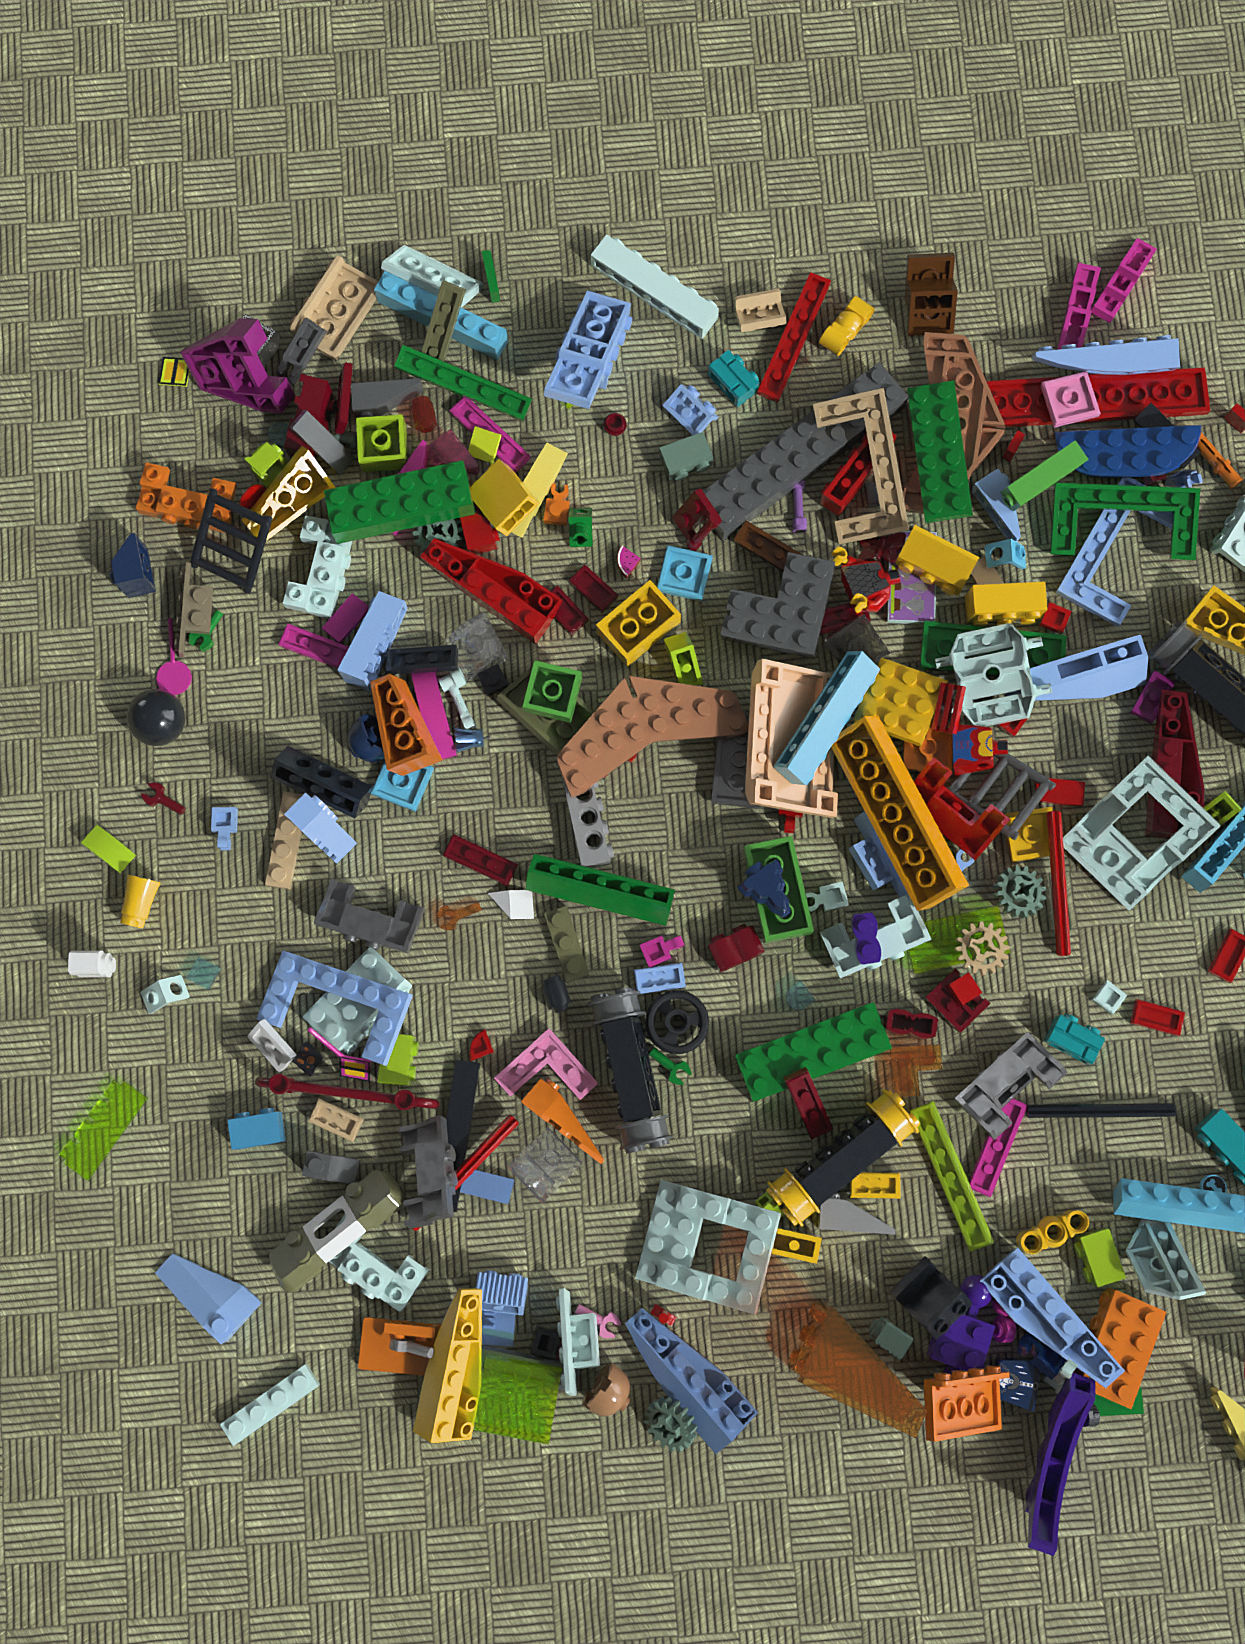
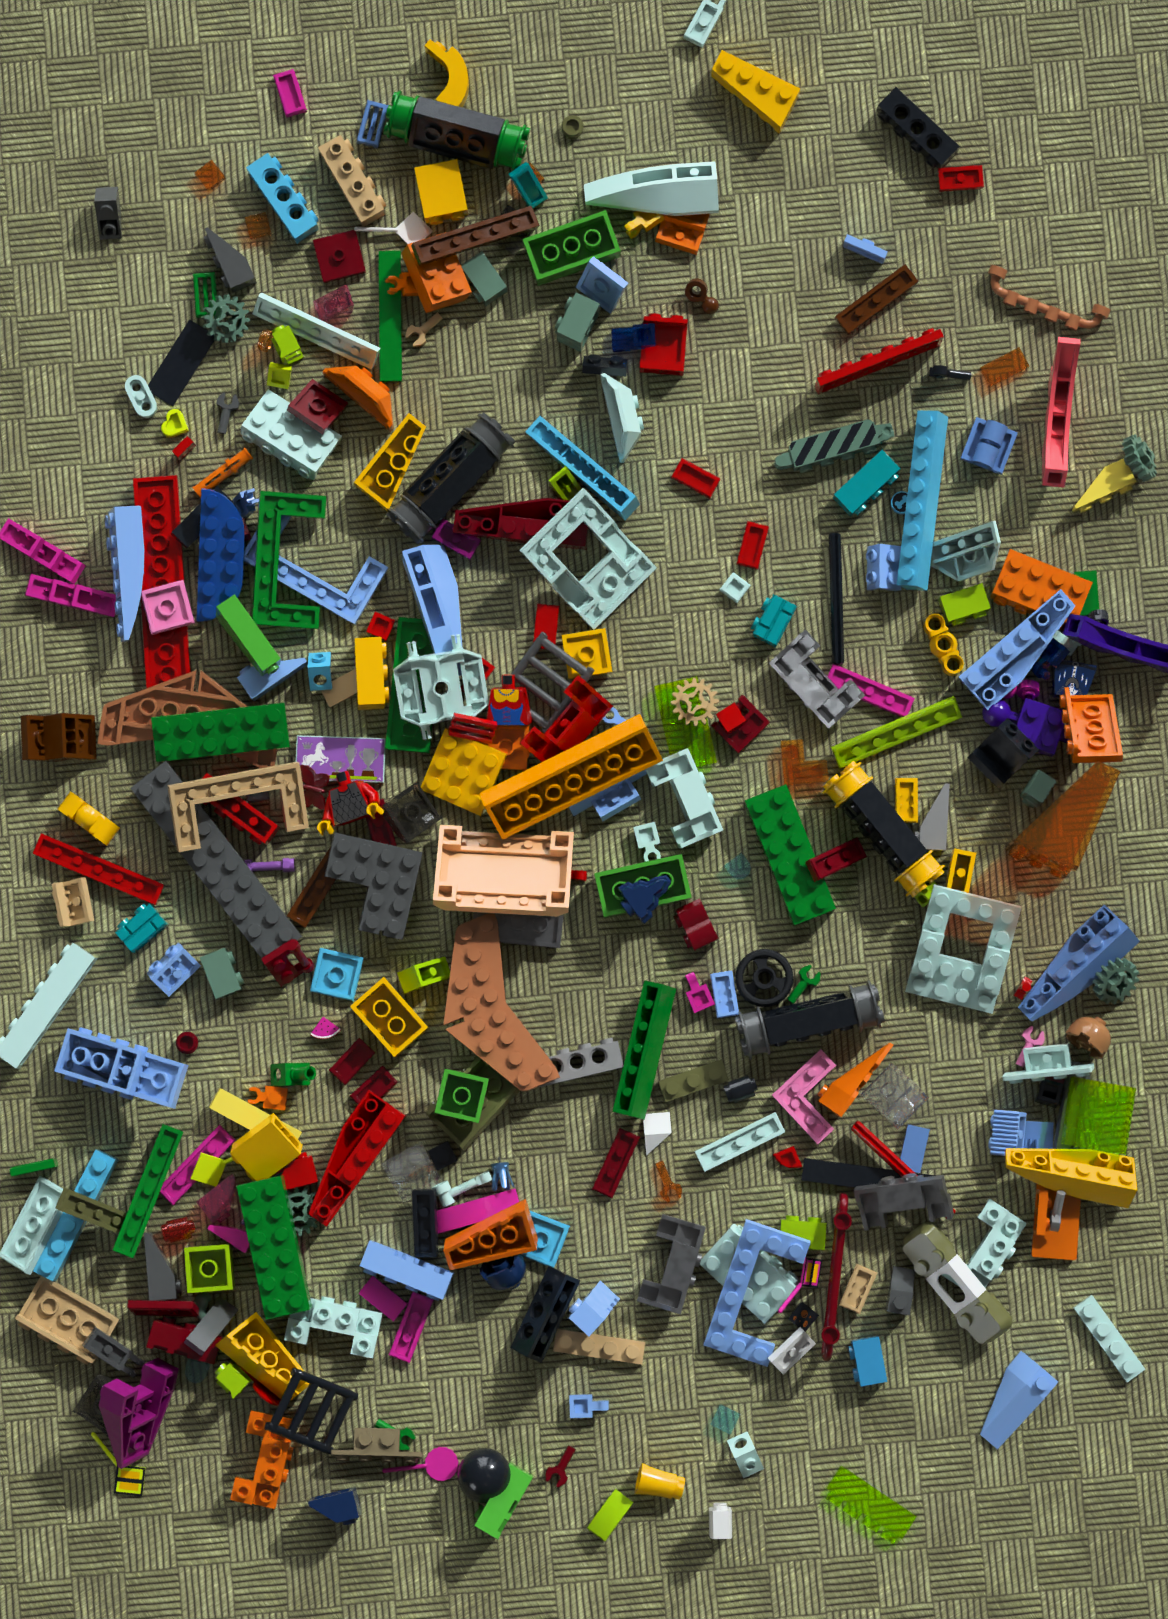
camera: 90 degrees left, 5 degrees up
(116, 729) = (499, 1509): none -> bright green wedge
(499, 993) = (740, 1141): none -> light aqua plate
(827, 718) = (483, 840): medium azure brick -> none
(866, 944) = (684, 807): dark purple brick -> none
(918, 1026) = (763, 774): dark red brick -> none
(936, 561) = (331, 737): yellow slope -> none
(1013, 446) = (211, 661): red tile -> none
(1029, 899) = (633, 671): sand green gear -> none
(1058, 882) = (629, 631): red axle -> none
(1138, 1163) = (882, 567): none -> light blue bracket

